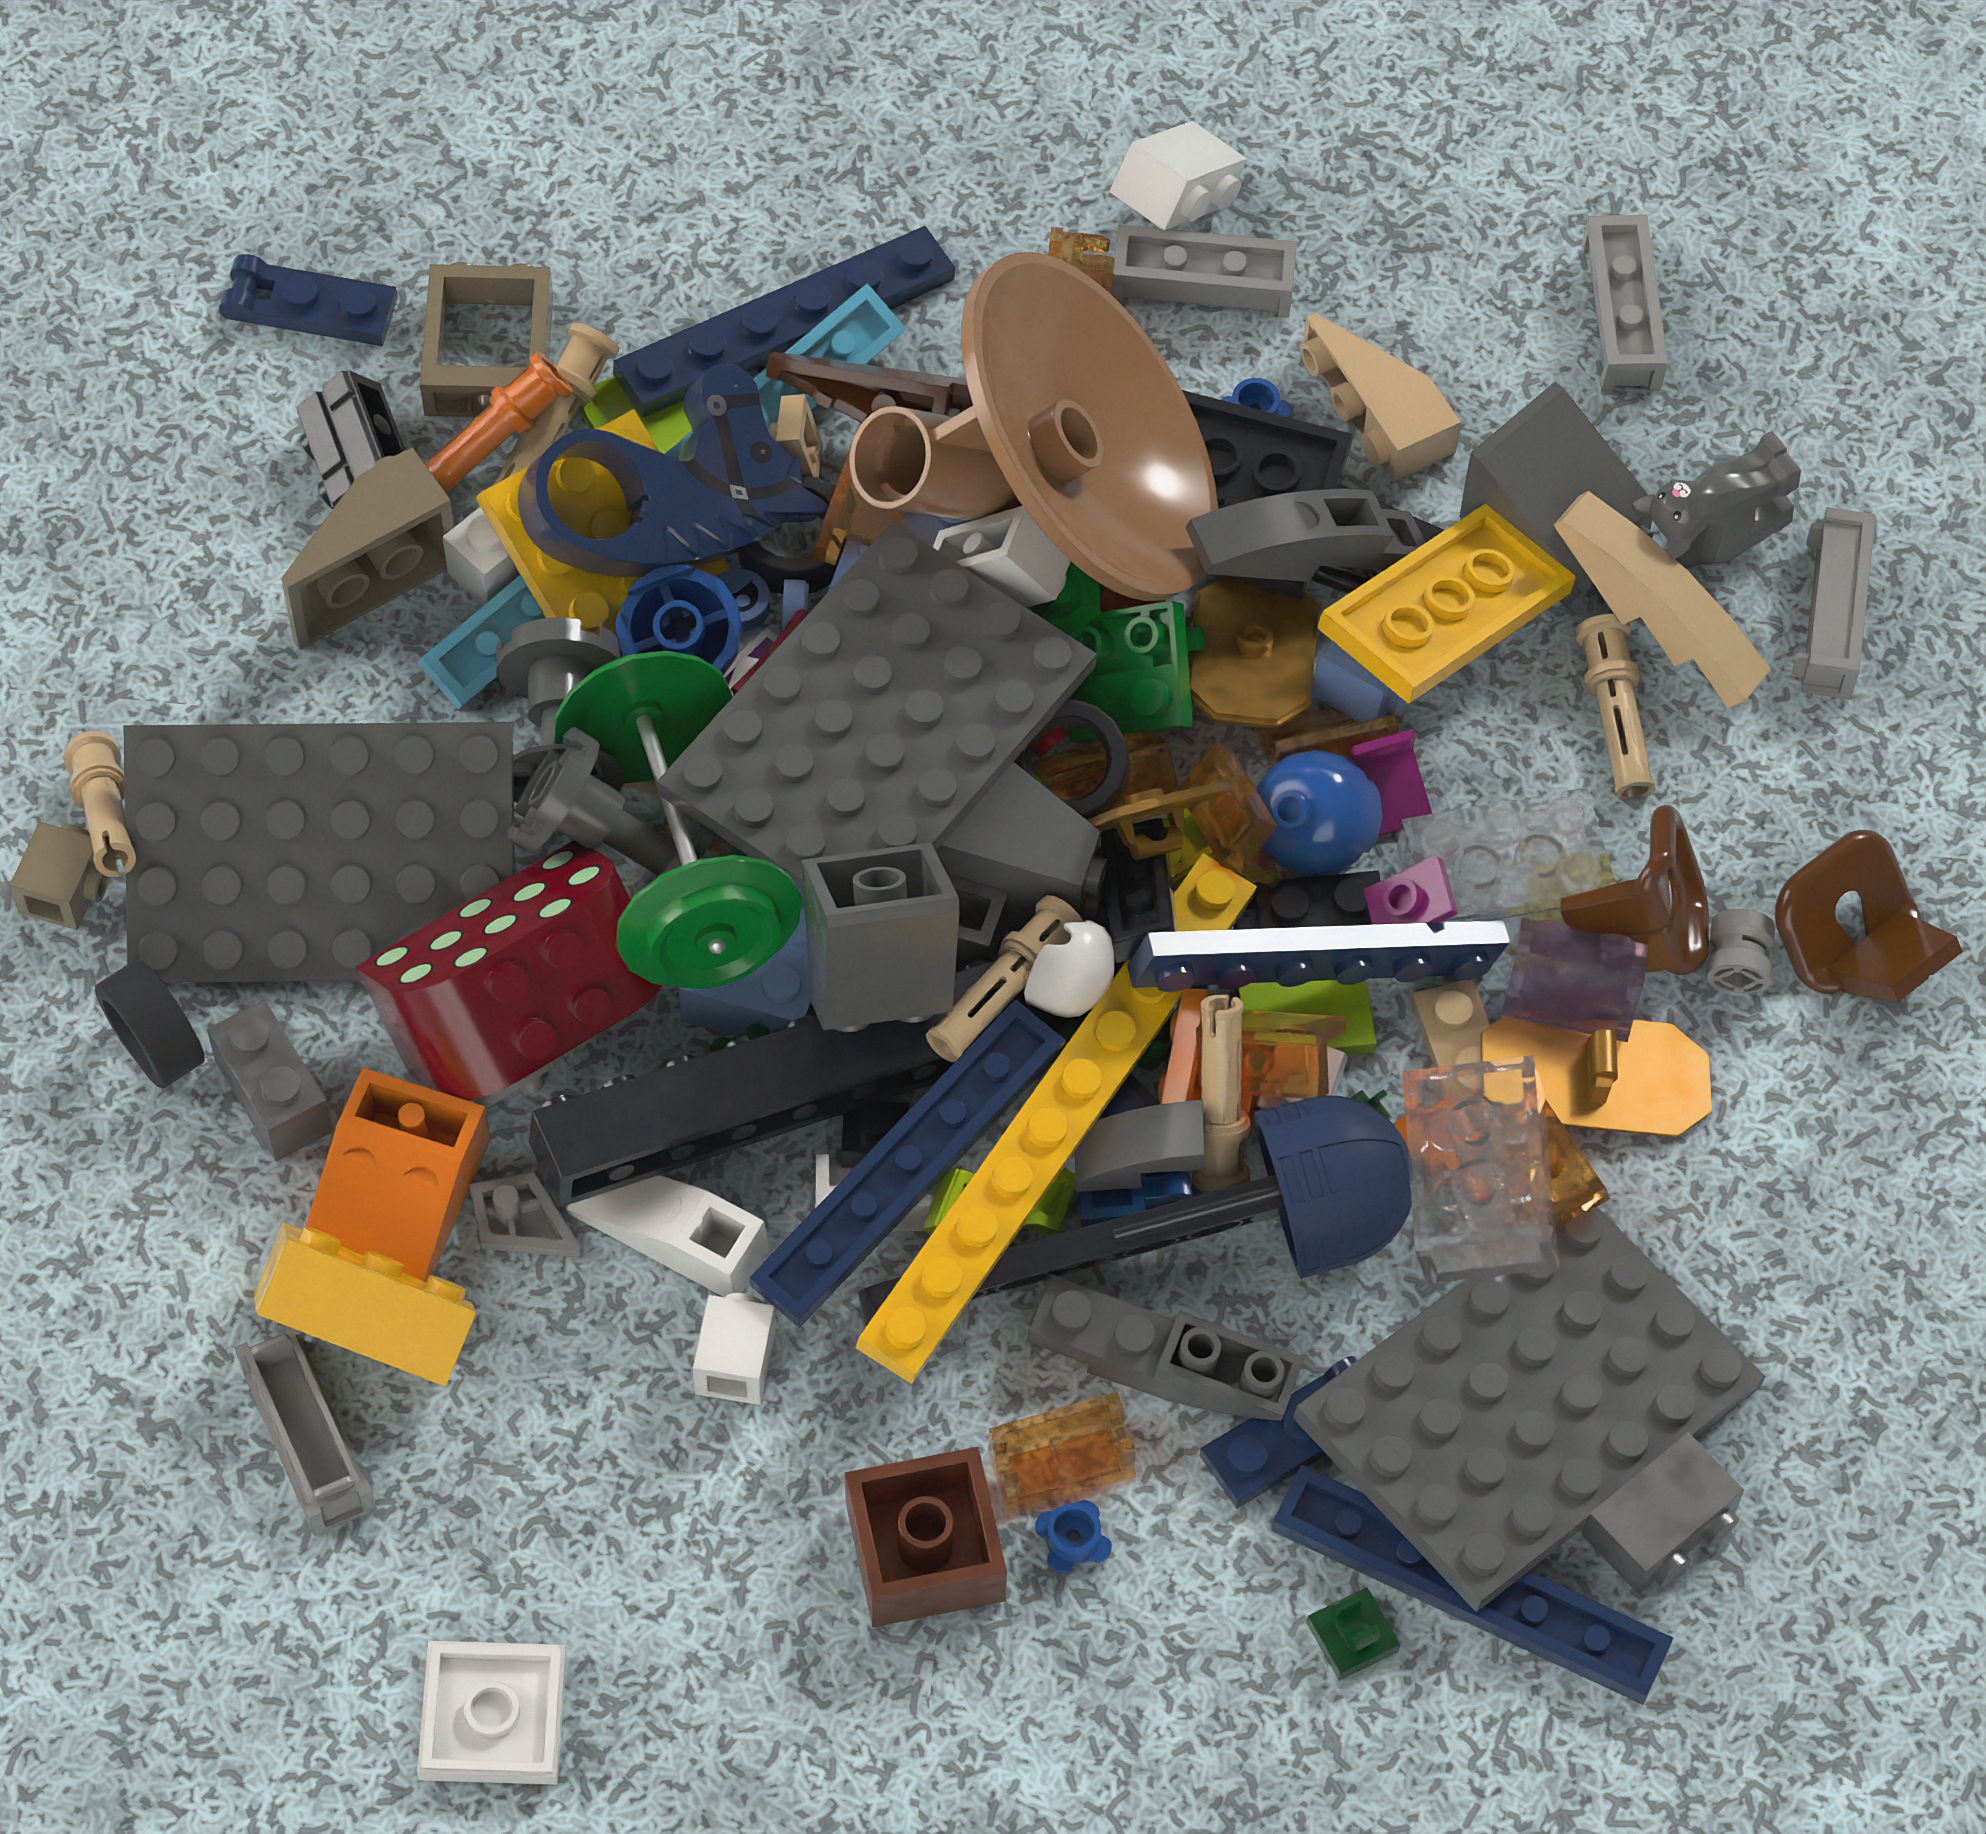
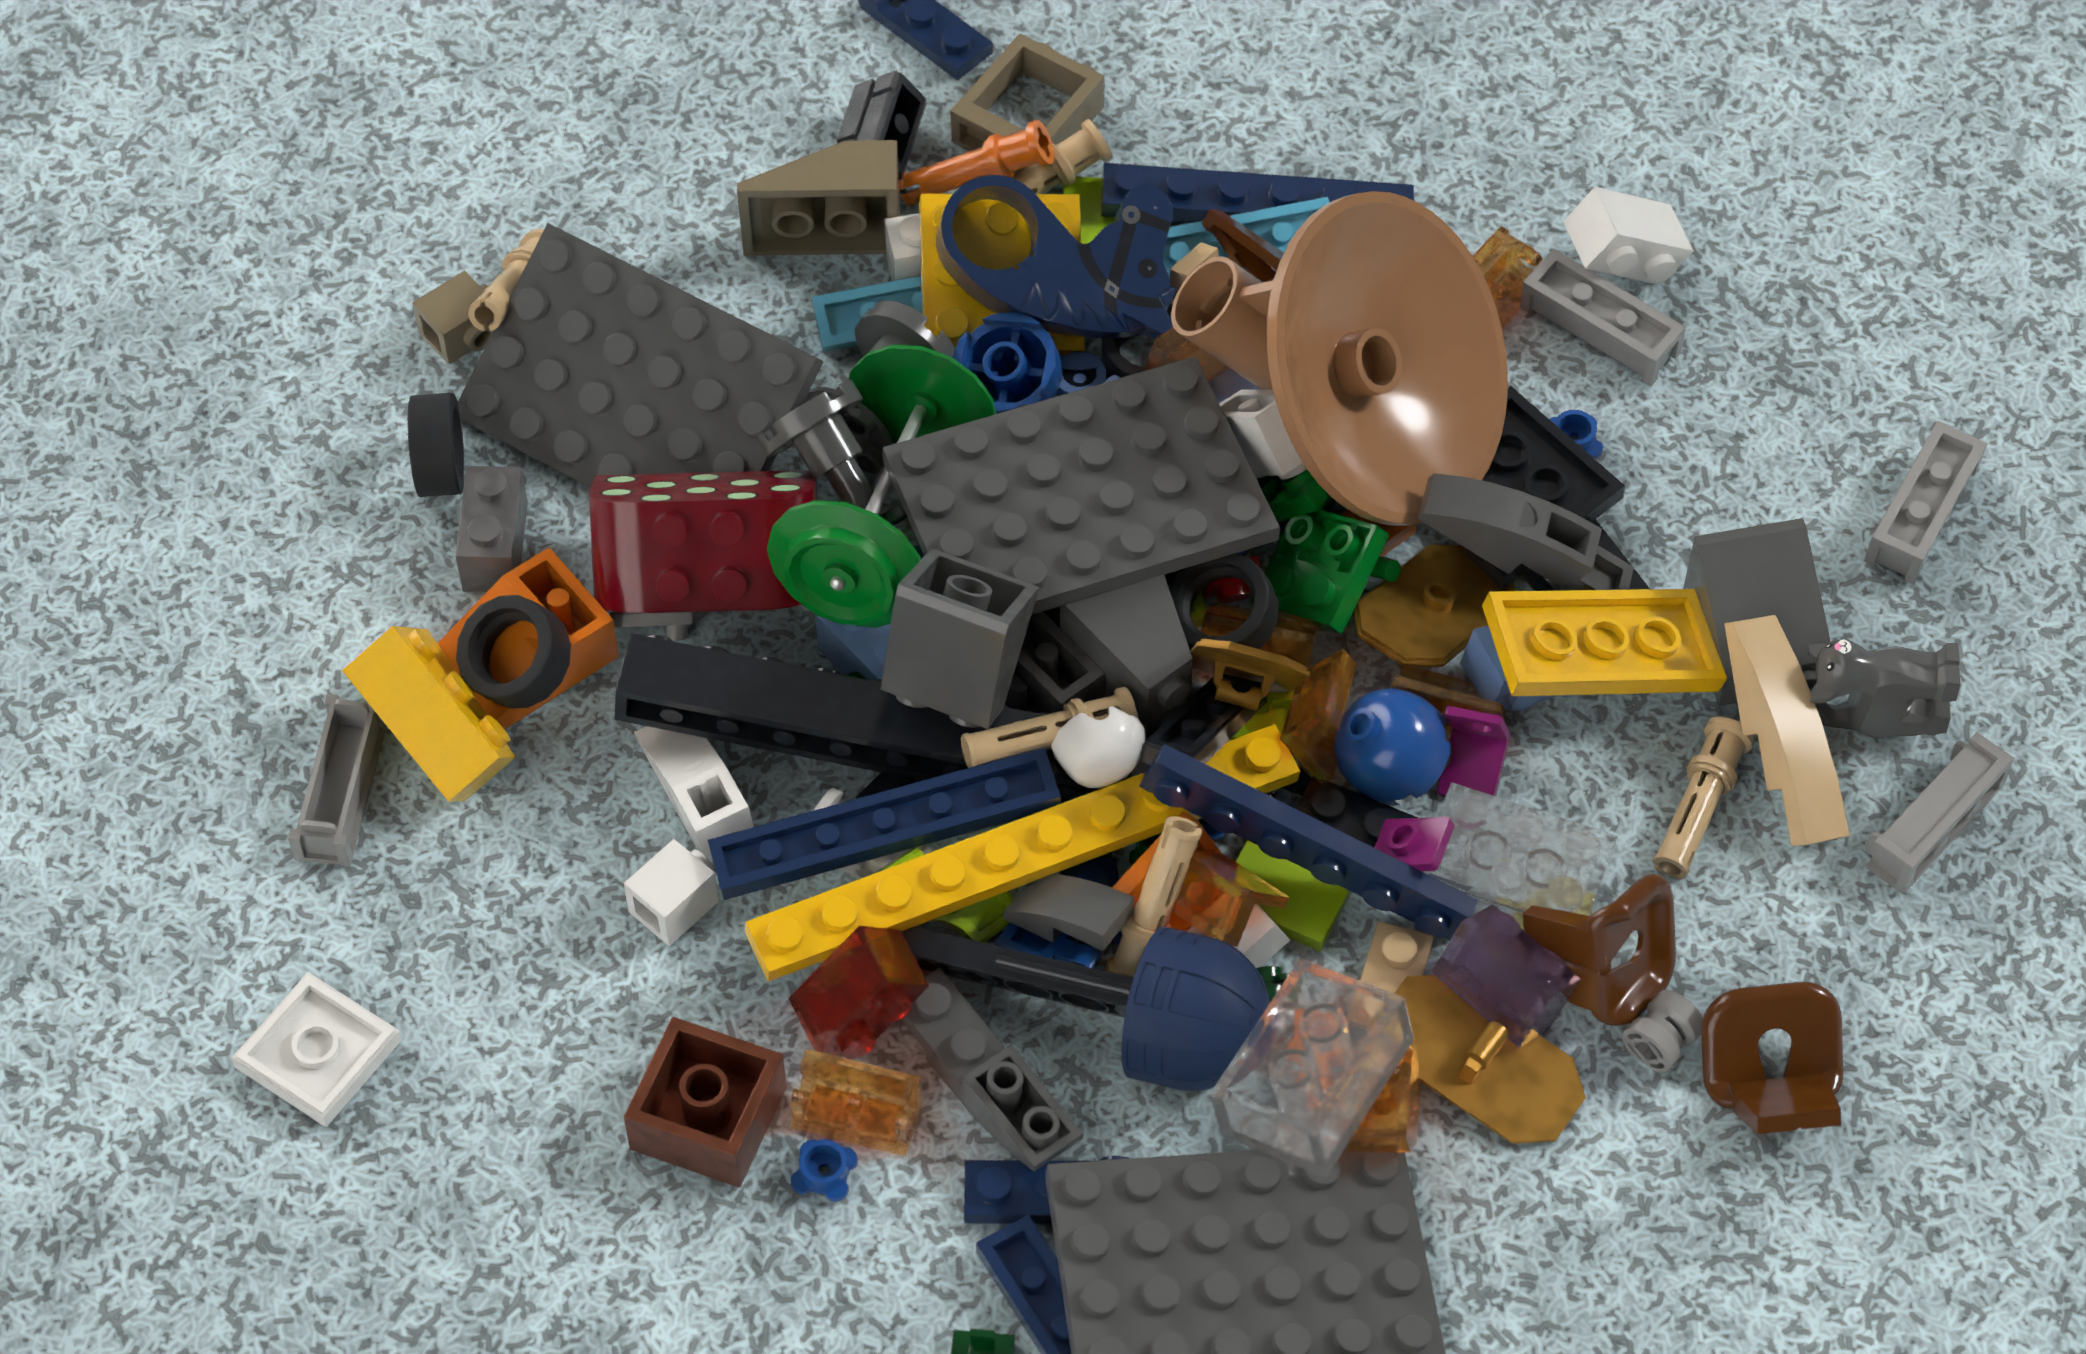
camera: 35 degrees right, 5 degrees down
(361, 1182) = (479, 638): none -> black tyre
(520, 1217) = (591, 722): light grey piece -> none
(998, 1344) = (859, 992): none -> clear red brick
(1393, 405) = (1679, 477): tan slope -> none

